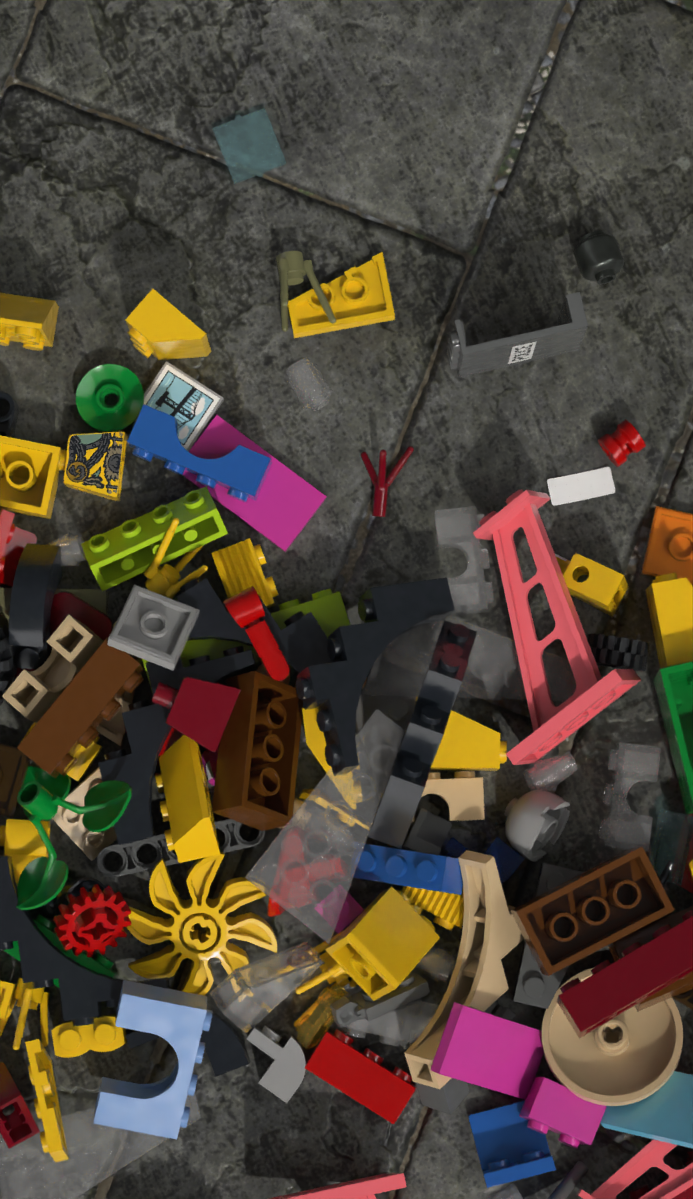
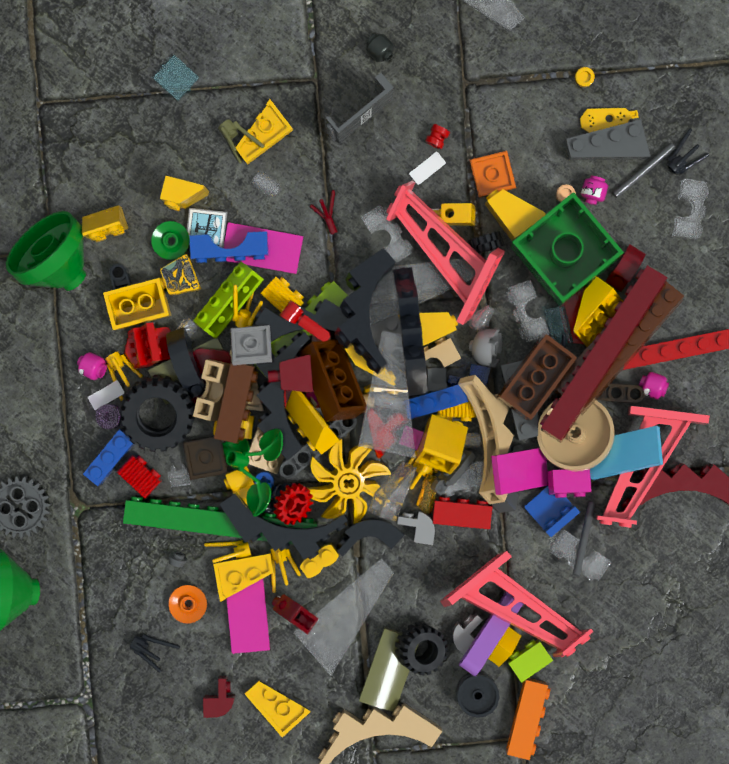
camera: 30 degrees left, 5 degrees up
(47, 1101) = (314, 602): yellow wing -> none
(73, 858) = (266, 477): none -> blue wheel
(156, 1106) = (371, 577): medium blue arch -> none

